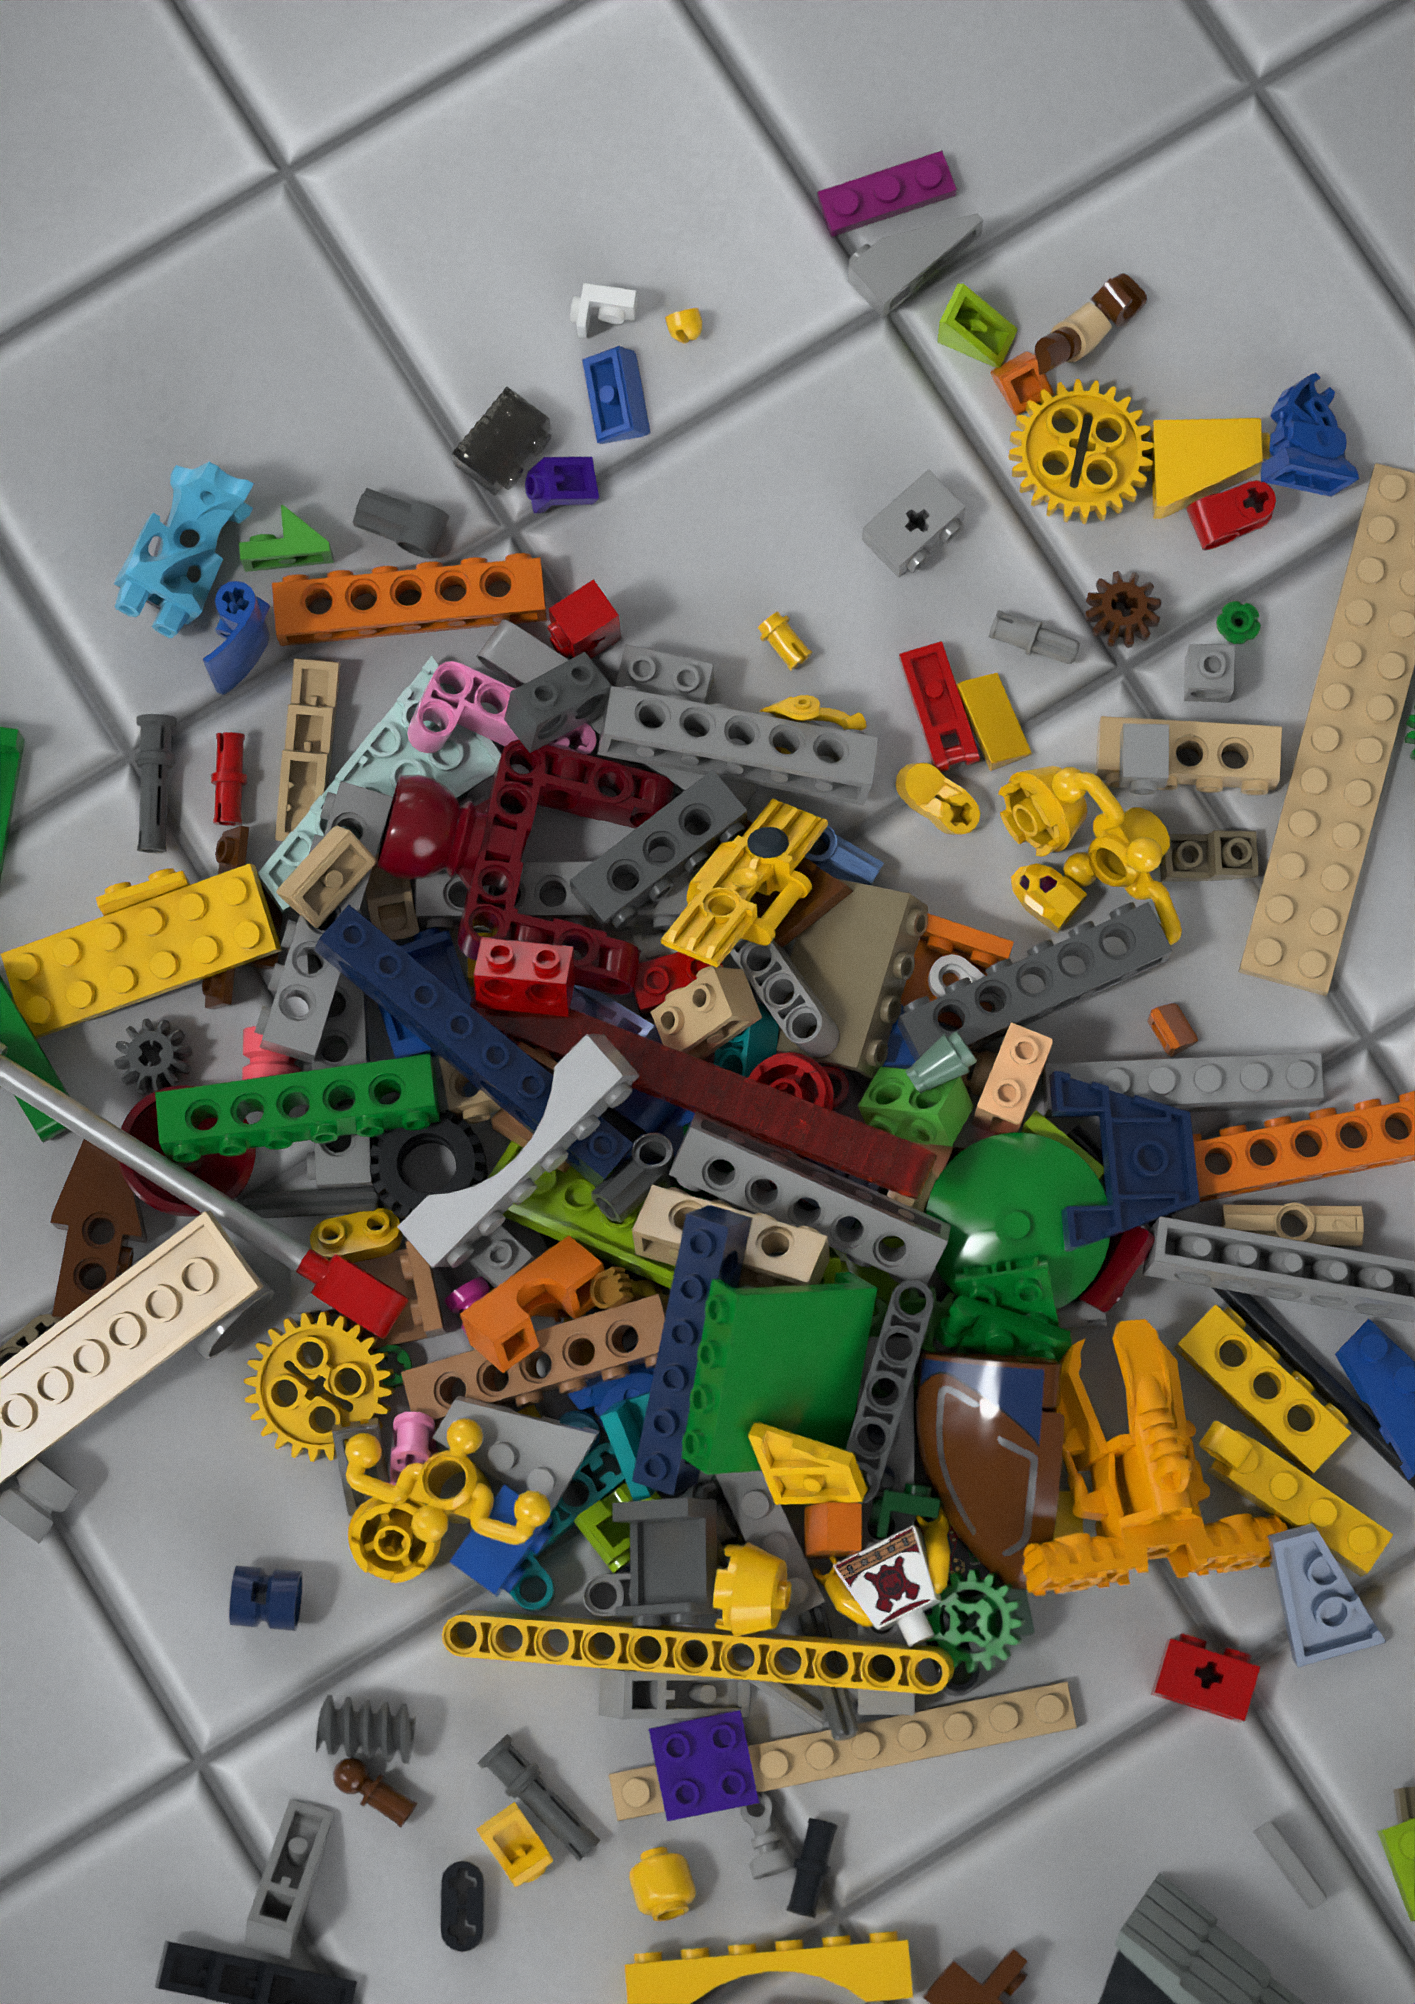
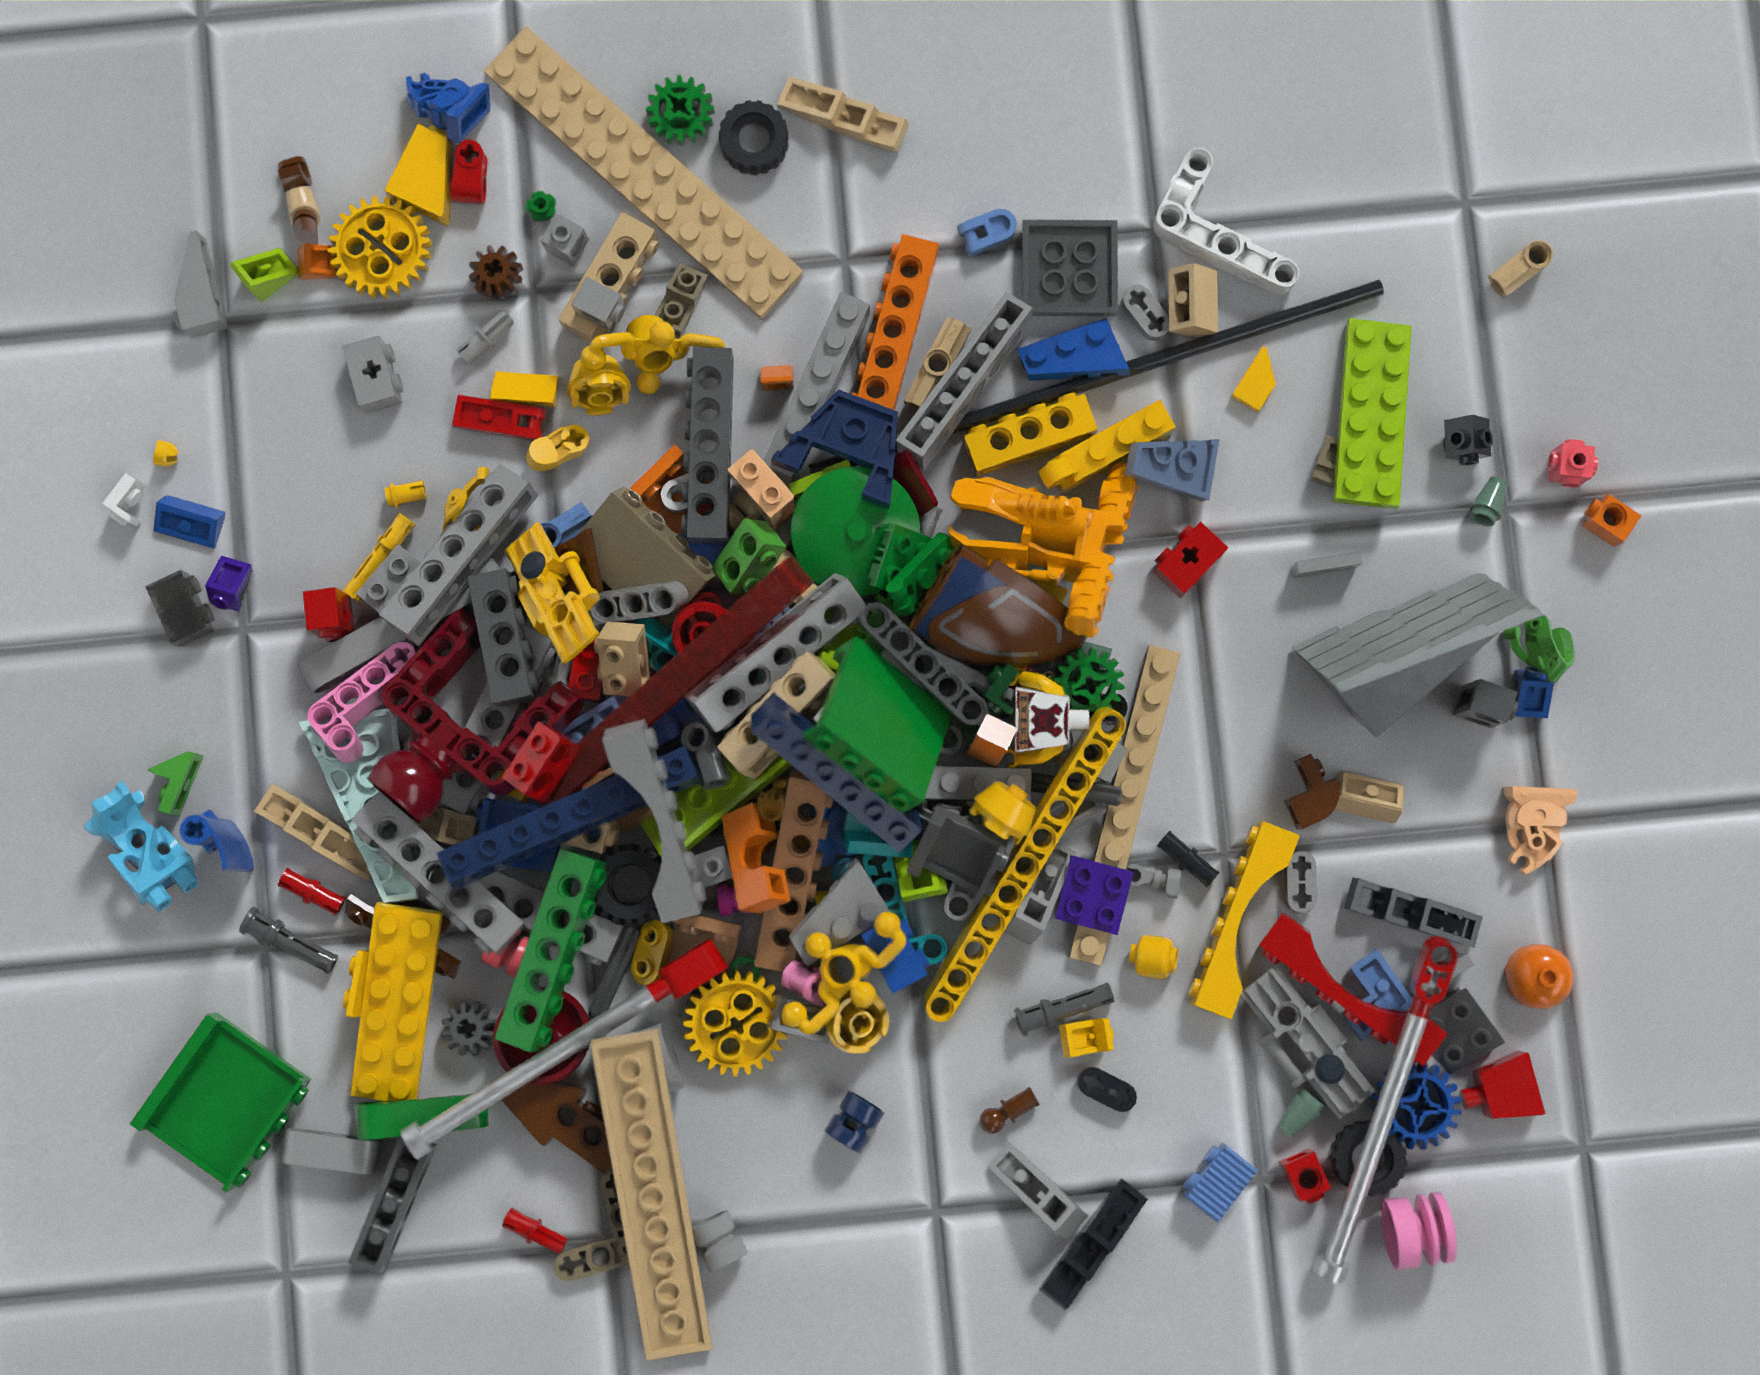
camera: 65 degrees left, 5 degrees up
(327, 875) = (409, 858): tan slope -> none
(366, 1729) = (968, 1097): dark grey piece -> none
(412, 526) = (206, 692): dark grey piece -> none
(430, 614) = (259, 736): orange brick -> none
(557, 702) = (371, 654): dark grey brick -> none
(708, 649) = (394, 535): none -> yellow pin
(805, 1469) = (948, 738): yellow wing -> none
(886, 193) = (147, 284): magenta plate -> none
(941, 1063) = (731, 525): sand green cone -> none
(1047, 894) = (653, 411): yellow rock -> none

